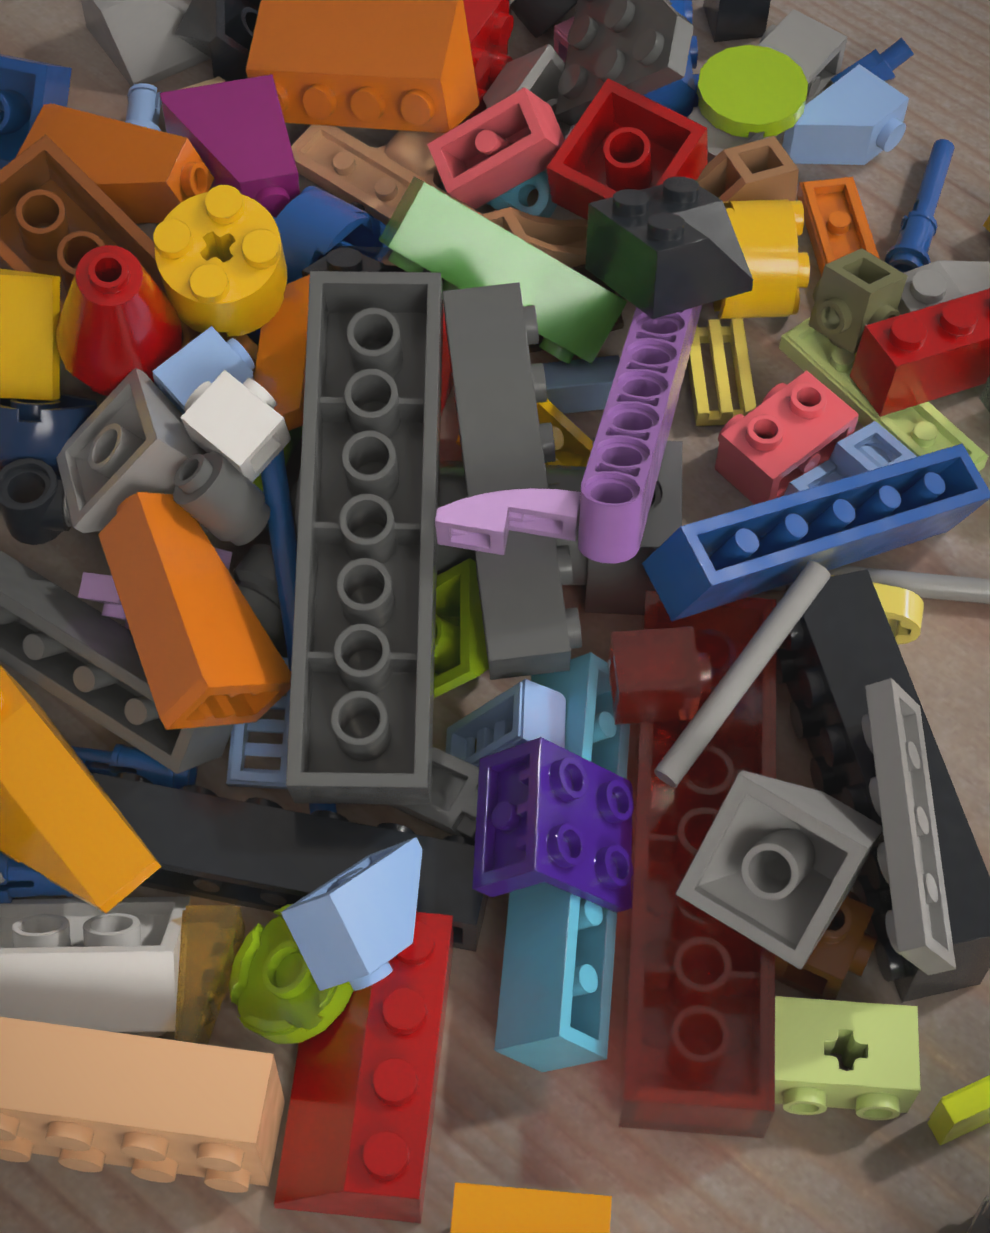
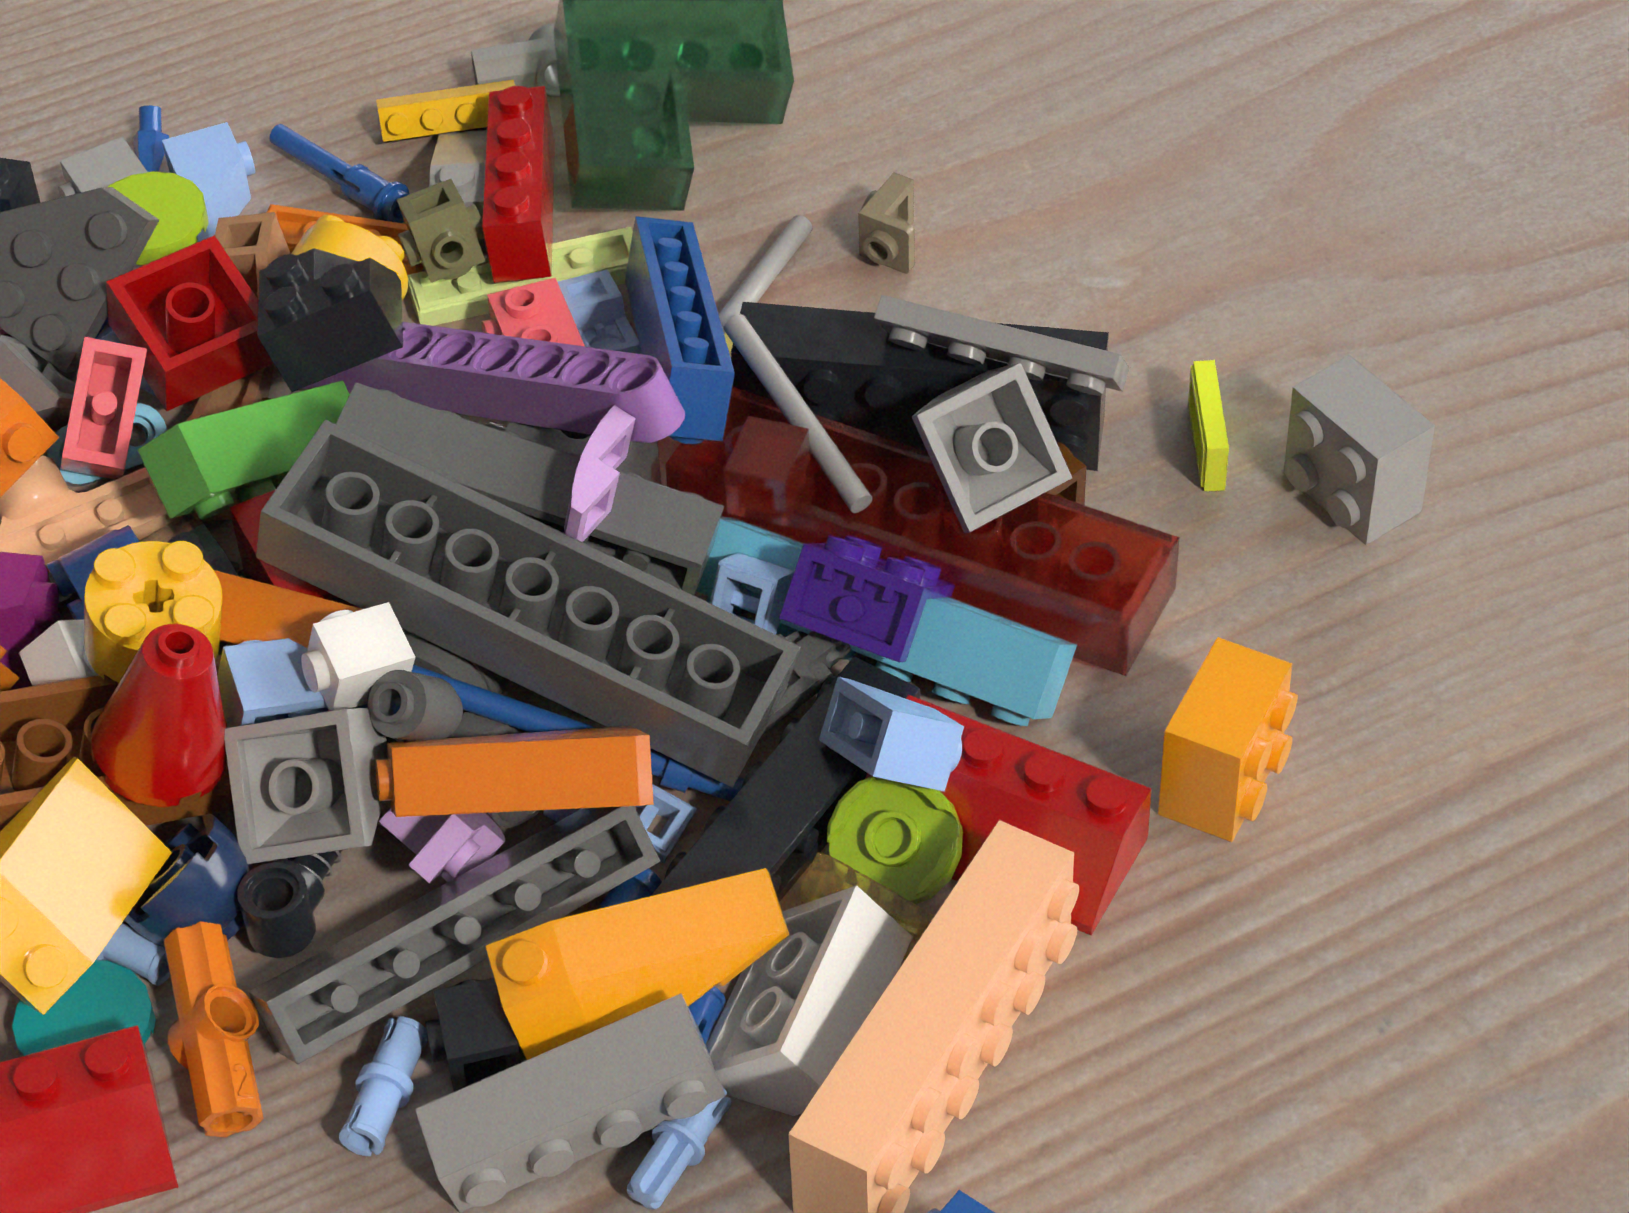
camera: 65 degrees left, 10 degrees down
(874, 1042) = (1146, 486): yellowish green brick -> none

